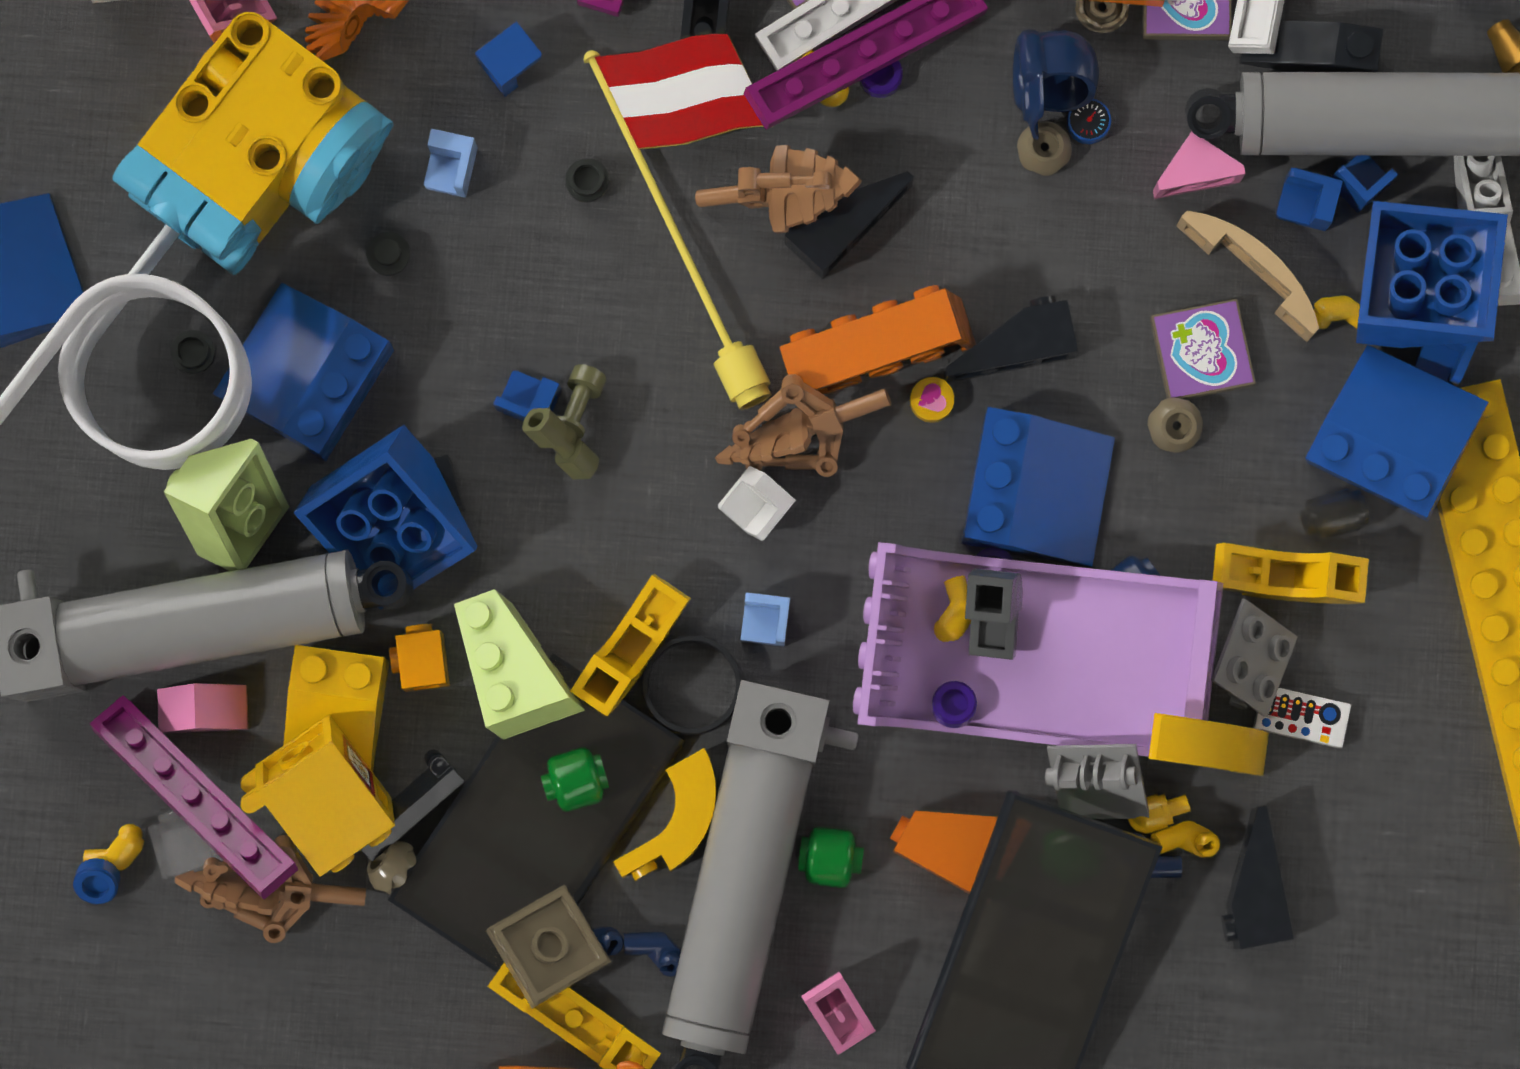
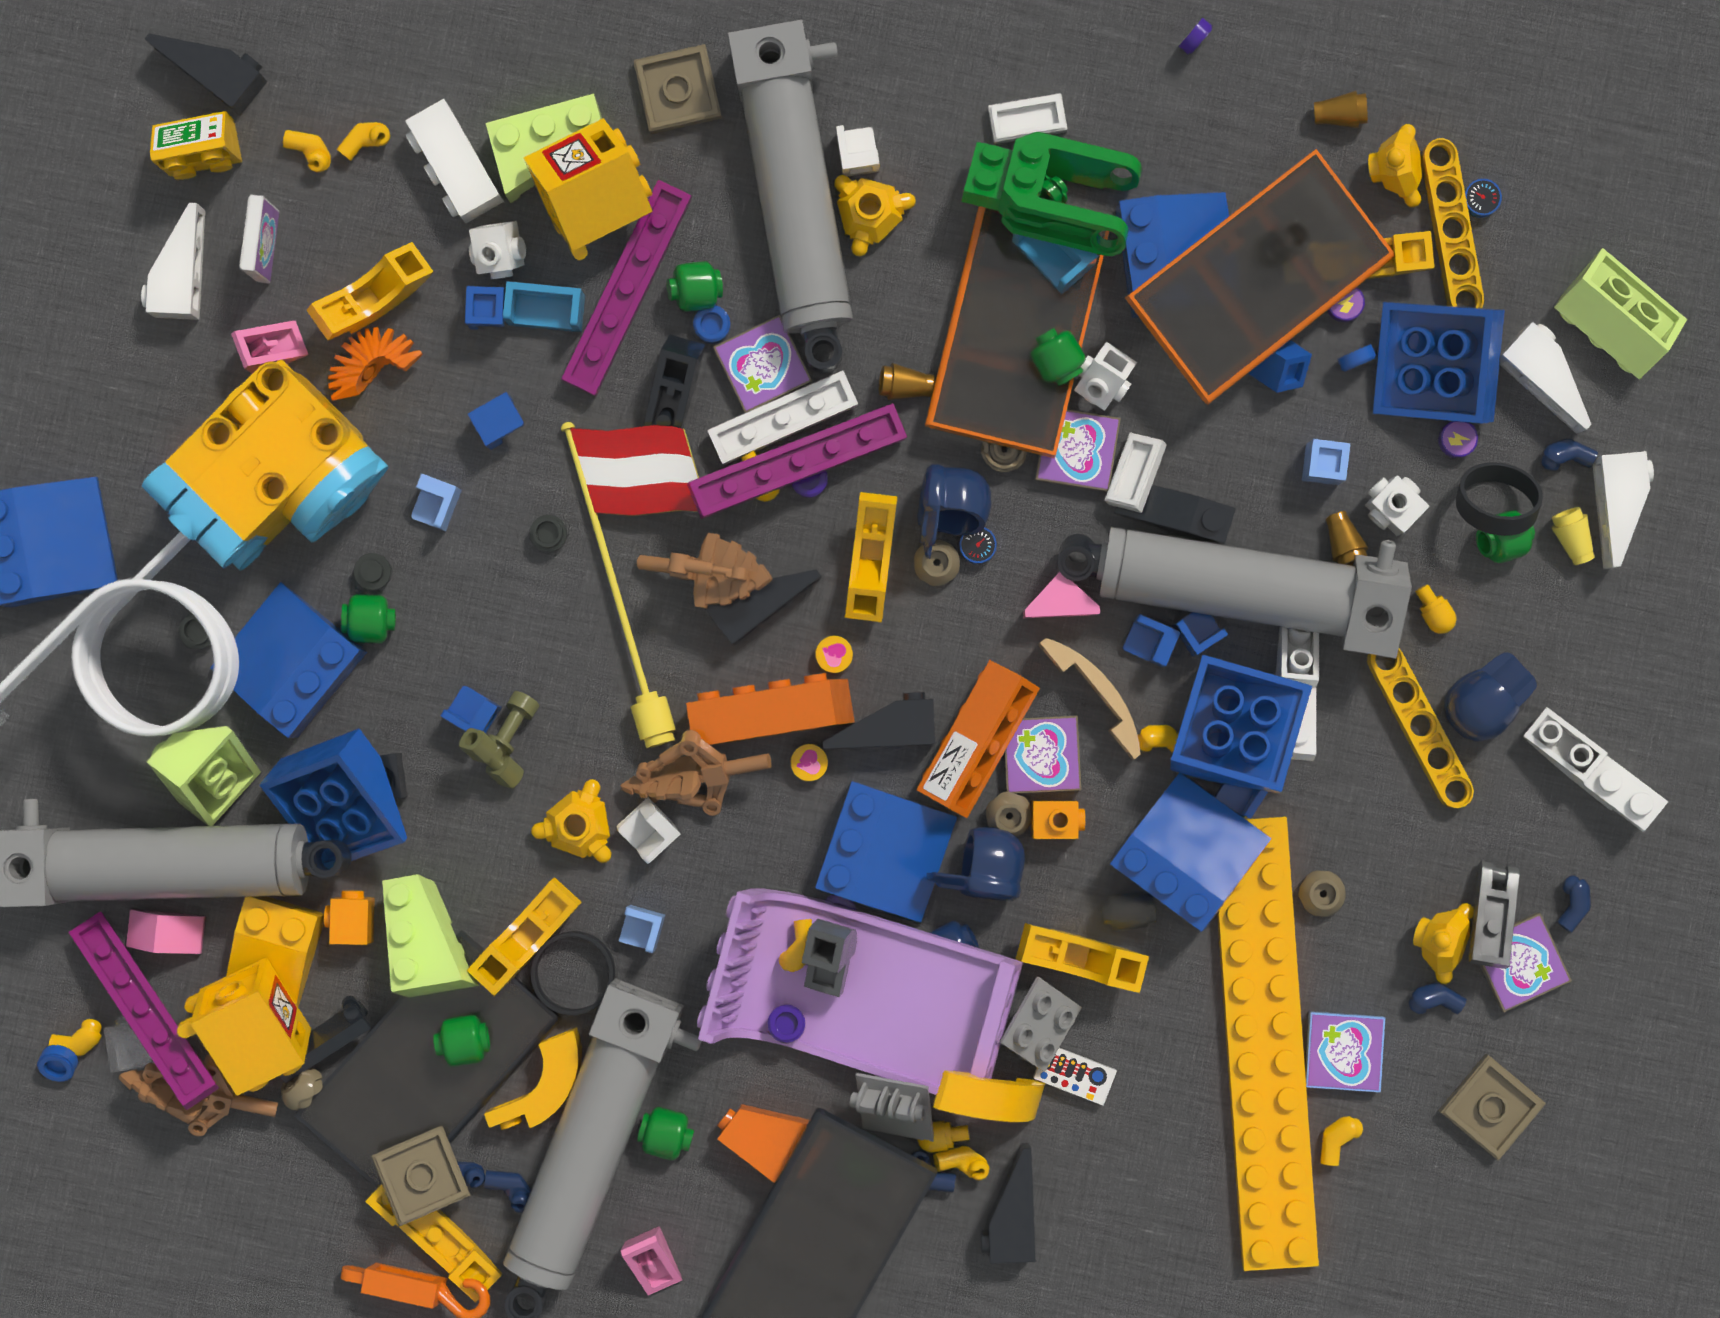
camera: 10 degrees right, 5 degrees up
(391, 307) = (367, 618): none -> green head
(672, 510) = (578, 824): none -> yellow rock
(941, 268) = (834, 654): none -> yellow tile
(968, 147) = (871, 557): none -> yellow arch
(1126, 339) = (978, 738): none -> orange brick
(1163, 486) = (990, 866): none -> dark blue piece
(1232, 421) = (1056, 820): none -> light orange brick

